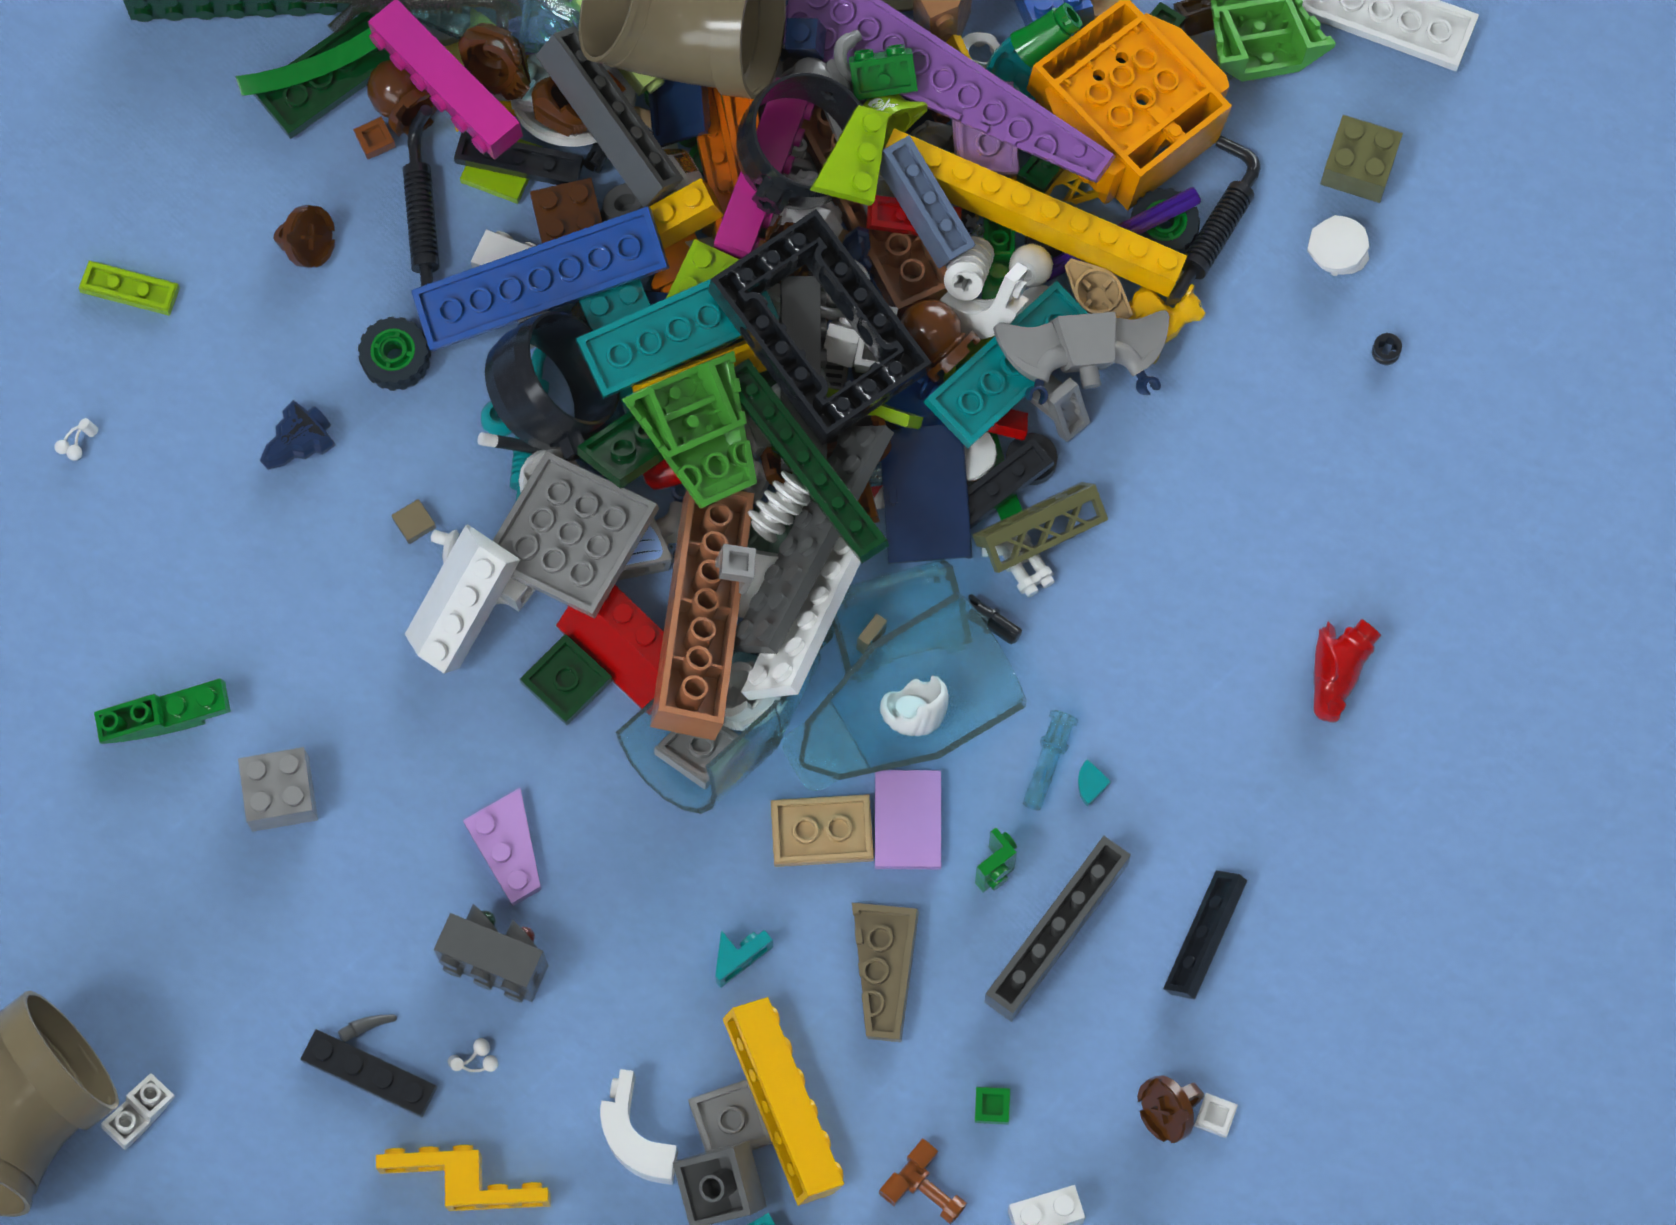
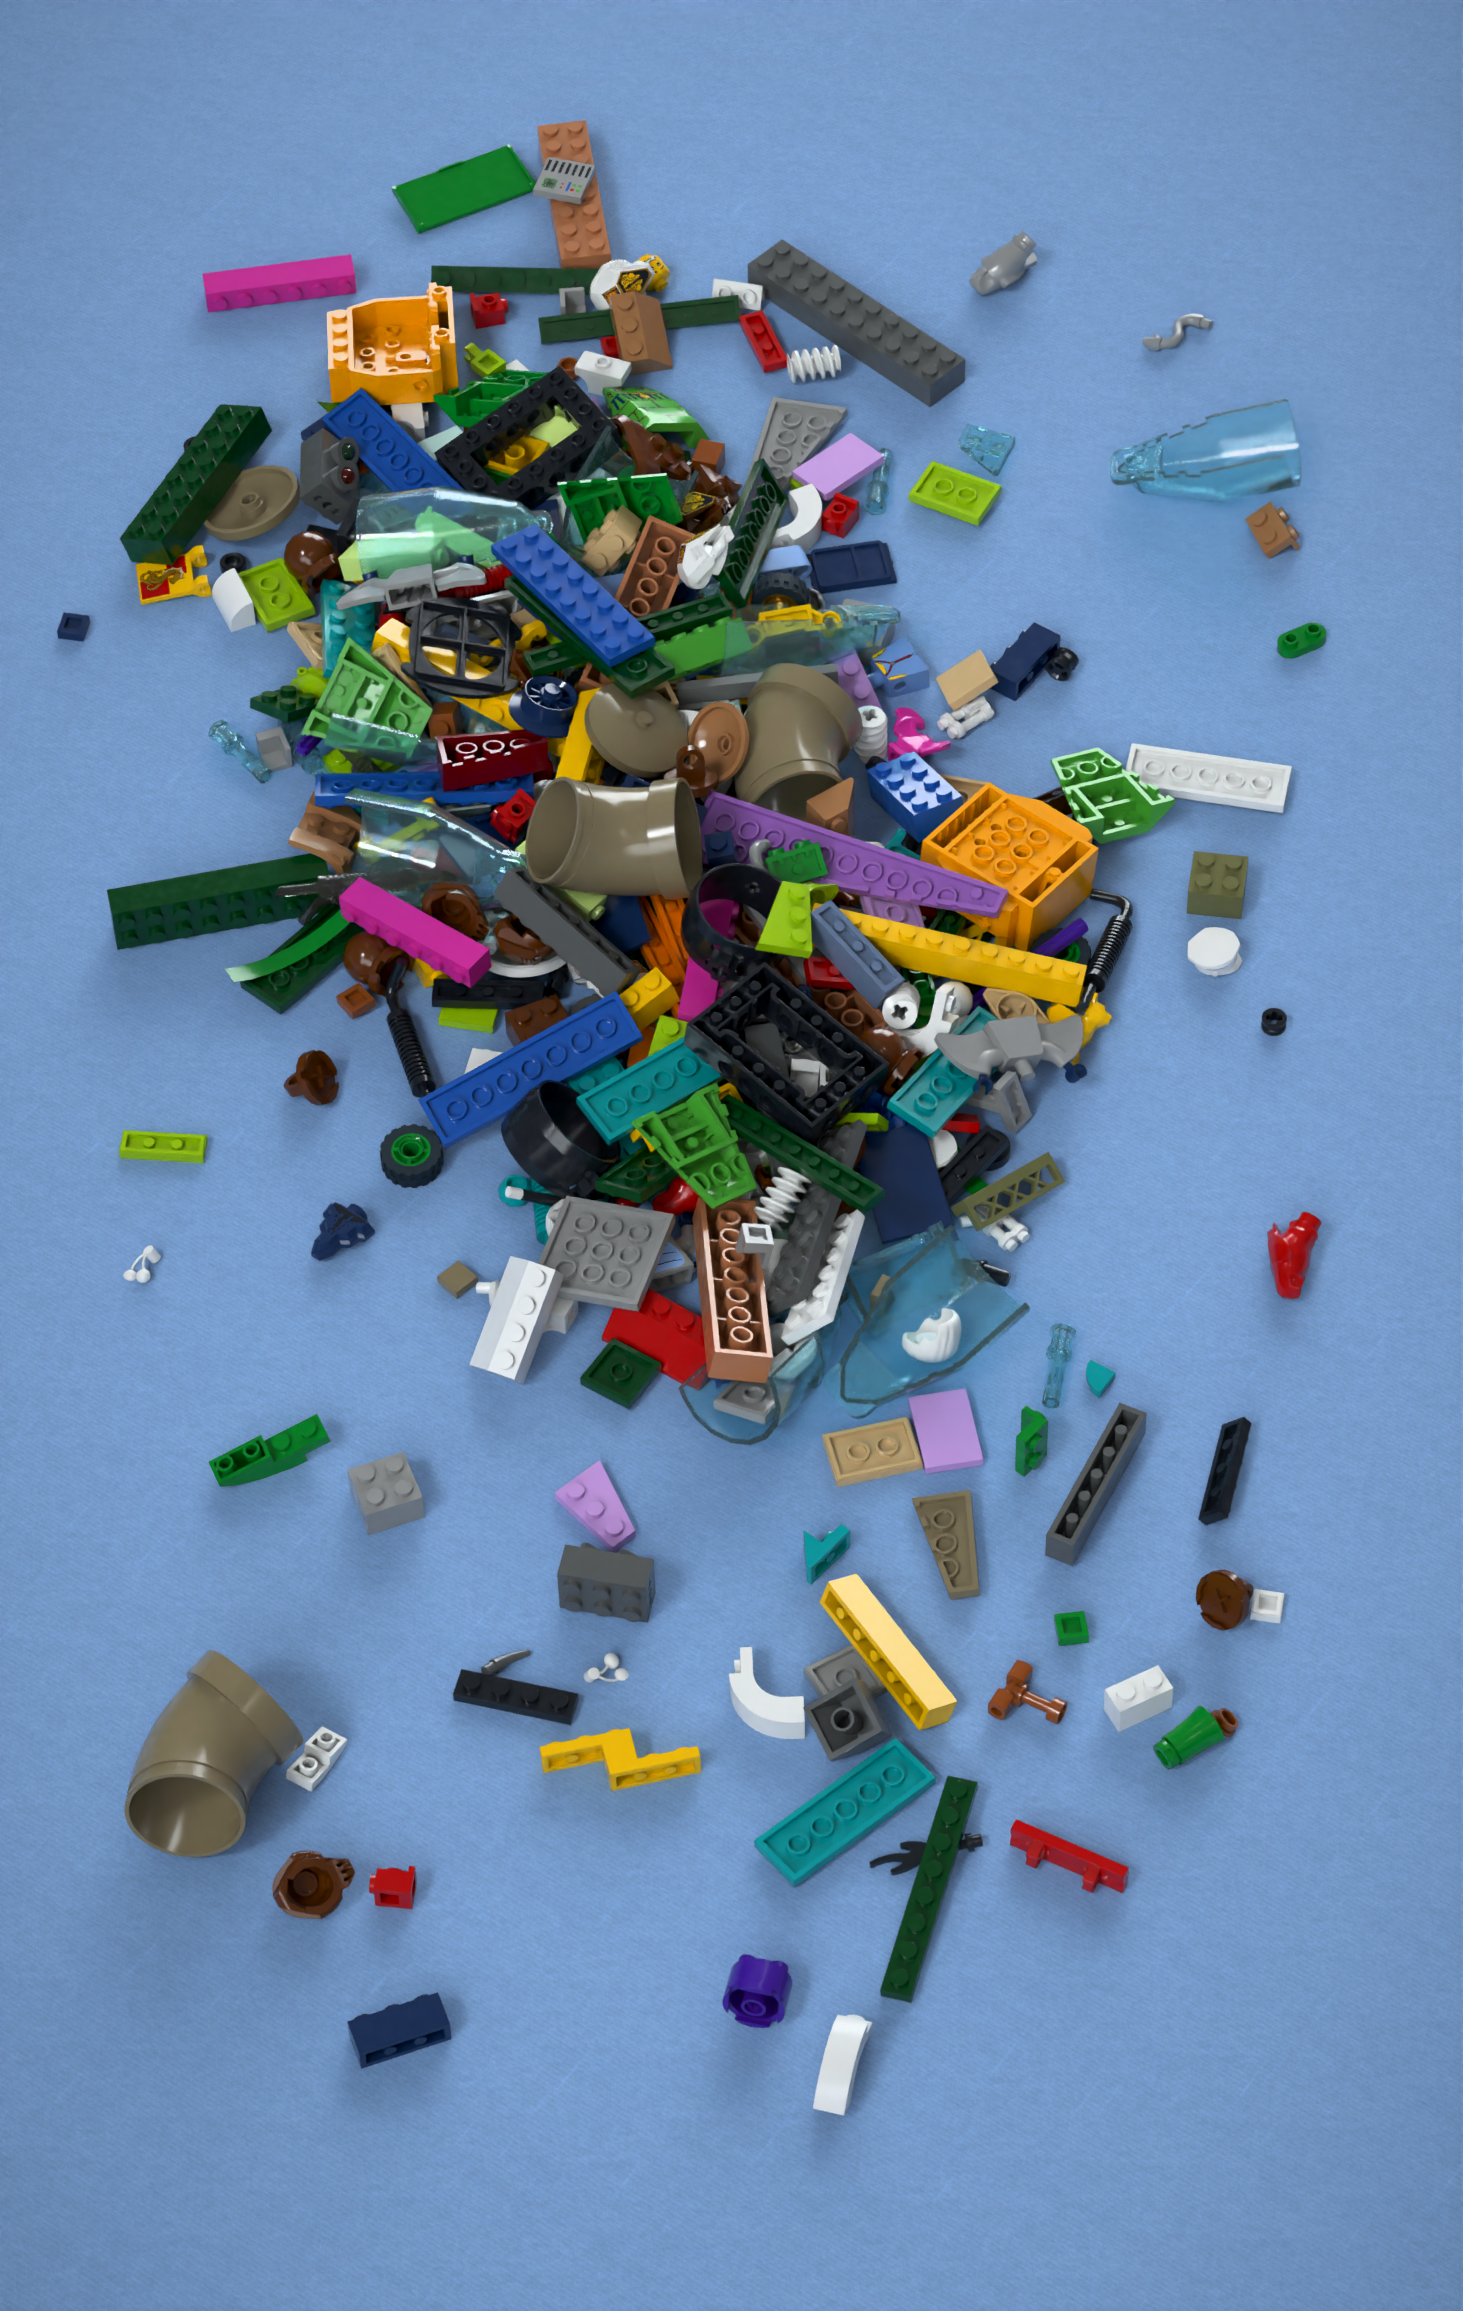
camera: 10 degrees left, 20 degrees down
(1045, 34) = (927, 818): green plant -> none

